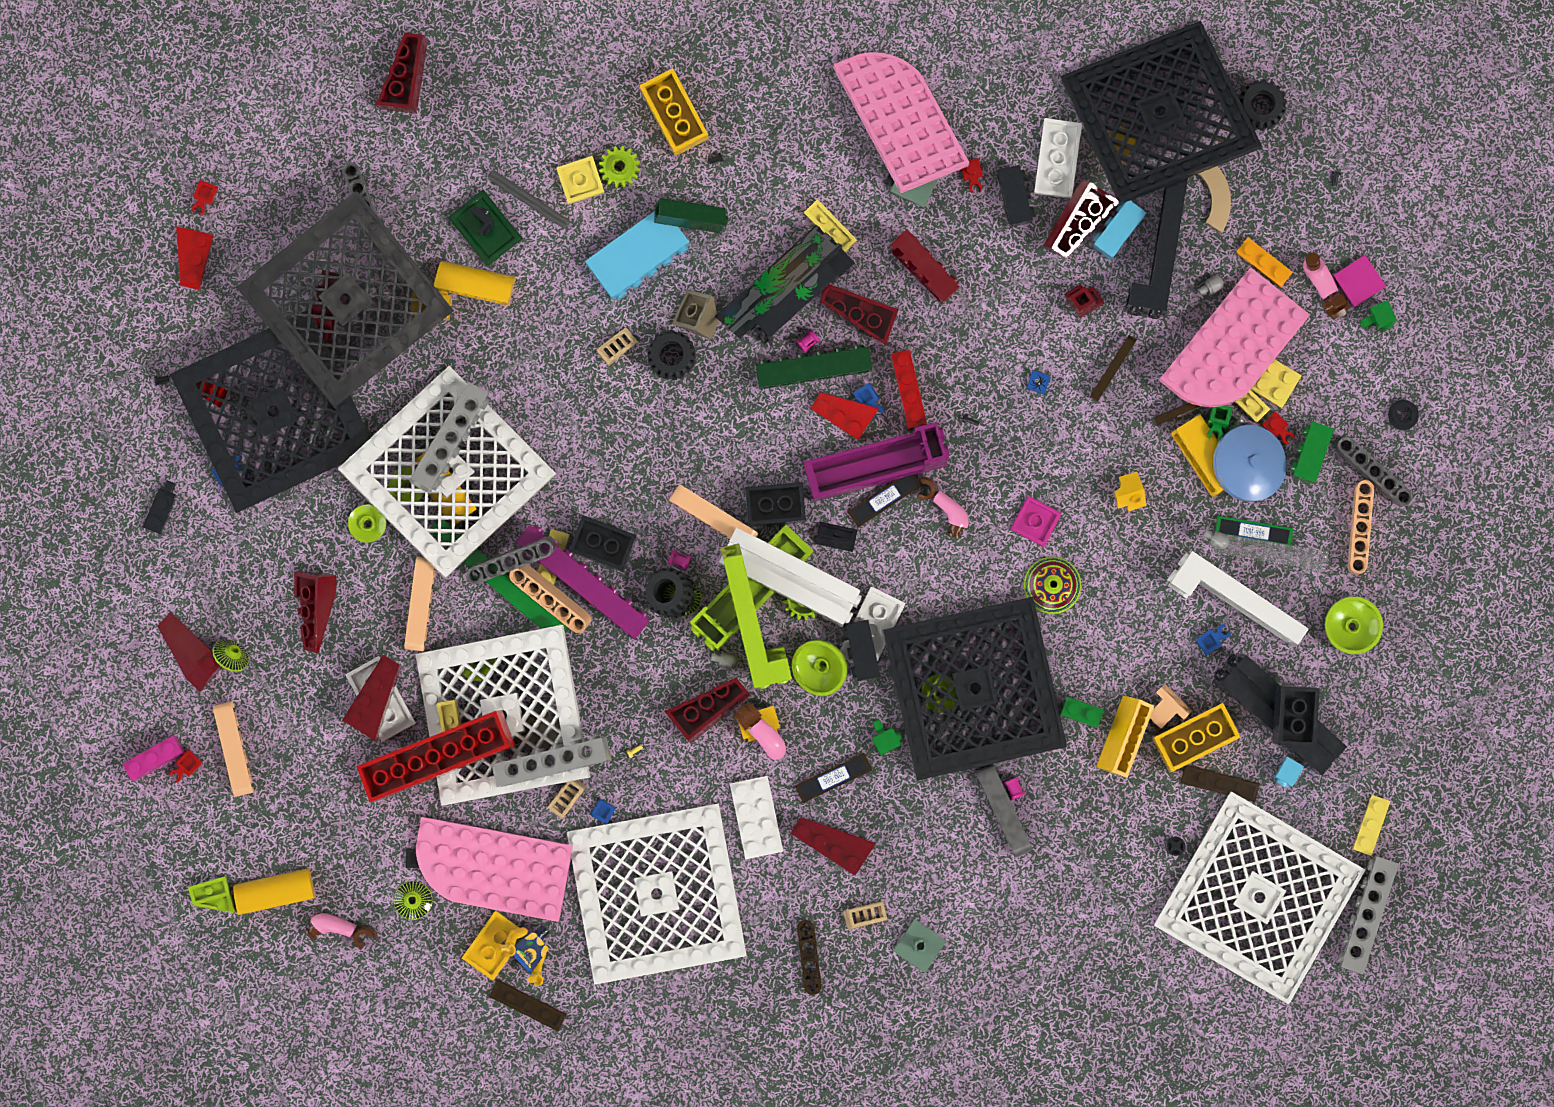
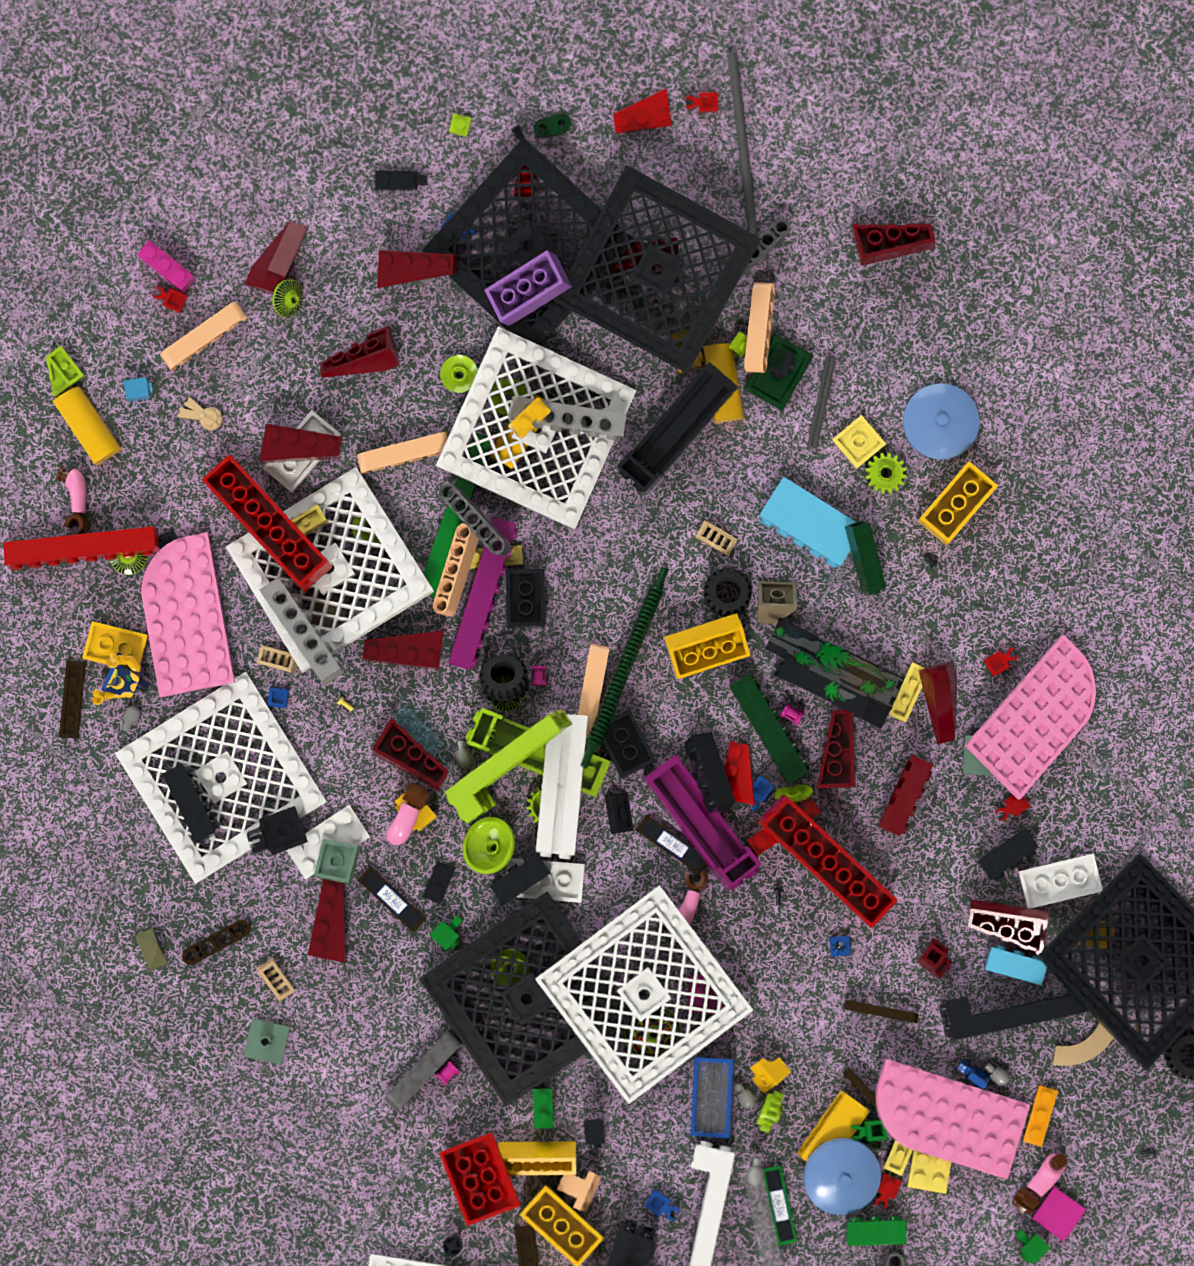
camera: 65 degrees right, 0 degrees up
(132, 431) = (460, 125): none -> lime plate
(168, 345) = (553, 128): none -> dark green plate
(247, 530) = (409, 266): none -> dark red wedge
(256, 176) = (742, 143): none -> dark grey piece
(259, 829) = (138, 389): none -> dark azure brick
(313, 425) = (528, 288): none -> medium lavender brick
(313, 773) = (209, 418): none -> tan piece
(388, 940) = (81, 547): none -> red brick
(434, 463) = (535, 411): none -> yellow brick
(437, 228) = (759, 327): none -> light nougat beam
(445, 252) = (738, 344): none -> lime plate
(500, 340) = (677, 428): none -> black brick
(566, 957) = (130, 717): none -> light grey cylinder
(591, 97) = (941, 421): none -> medium blue dish
(608, 670) = (410, 650): none -> dark red wedge
(670, 930) = (191, 803): none -> black brick
(686, 691) = (418, 730): none -> clear light blue plate
(704, 477) = (624, 667): none -> dark green hose
(714, 393) = (707, 646): none -> yellow brick
(730, 858) = (278, 832): none -> black plate
(779, 814) = (337, 861): none -> sand green tile
(791, 1021) = (151, 949): none -> olive slope
(832, 437) = (709, 772): none -> black brick
(835, 134) = (998, 662): none -> red plate
(835, 728) = (438, 882): none -> black plate
(843, 198) = (940, 692): none -> dark red wedge
(883, 368) = (796, 793): none -> lime dish
(957, 361) = (827, 861): none -> red brick
(1075, 551) = (734, 1010): none -> white plate
(1122, 673) = (594, 1133): none -> black brick
(1124, 796) = (479, 1179): none -> red slope
(1132, 552) = (713, 1097): none -> clear brick
(1142, 523) = (745, 1096): none -> light grey cylinder
(1165, 504) = (770, 1111): none -> lime gear
(1204, 305) = (976, 1075): none -> blue plate

